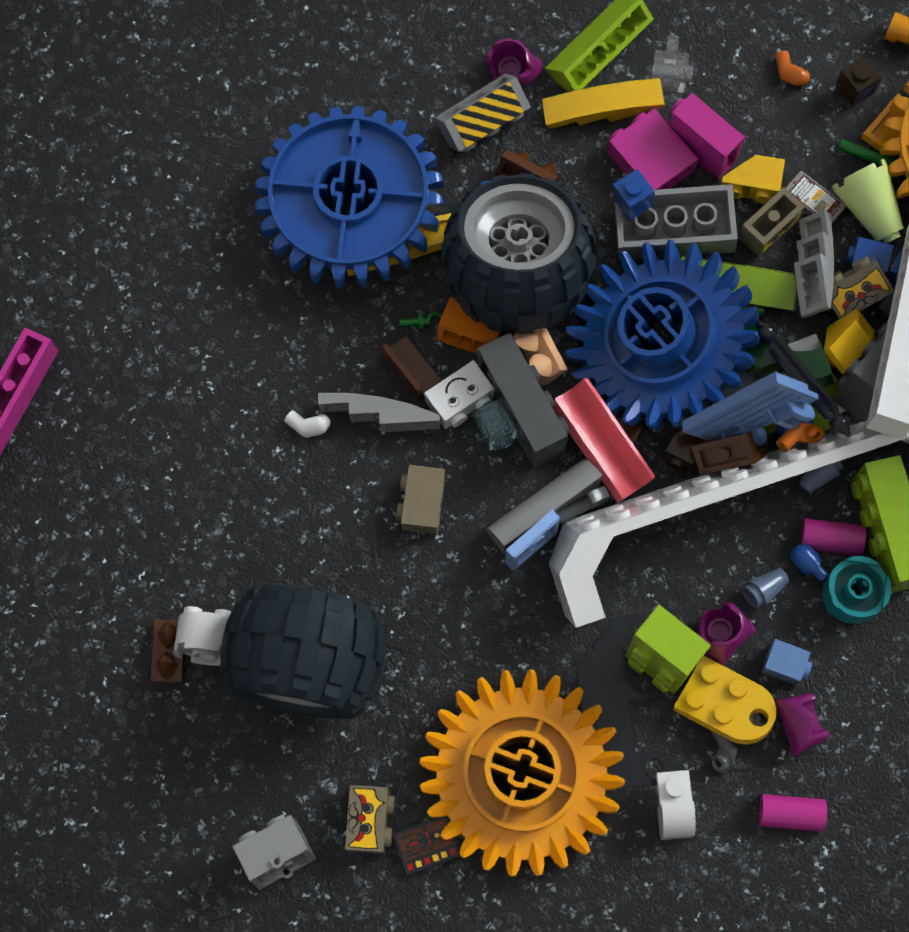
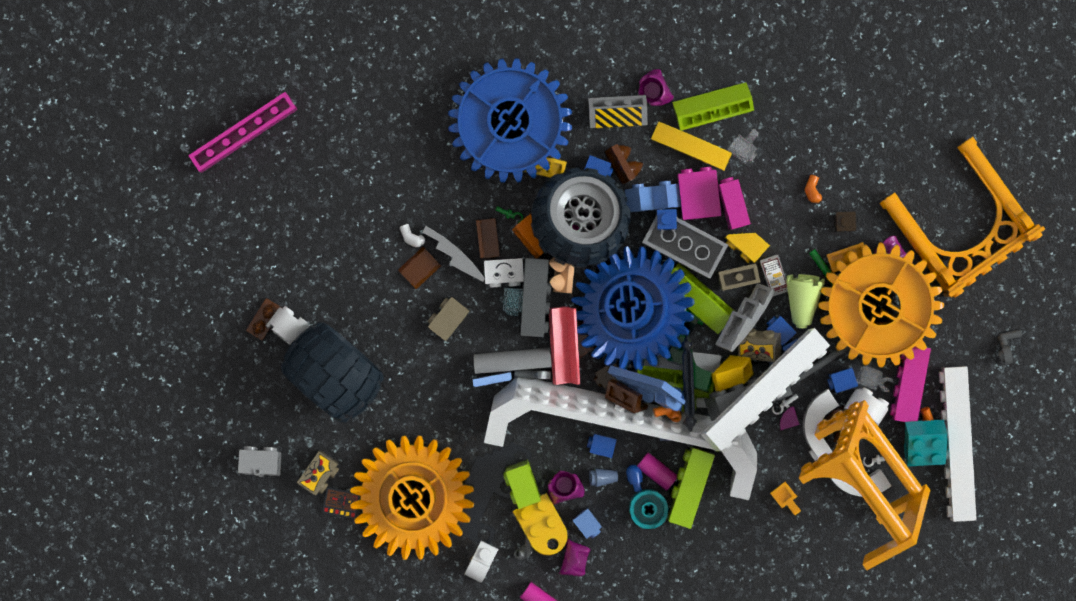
camera: 30 degrees right, 15 degrees up
(343, 459) = (419, 267): none -> reddish brown piece
(597, 188) = (653, 198): none -> medium blue brick
(736, 544) = (601, 445): none -> blue brick

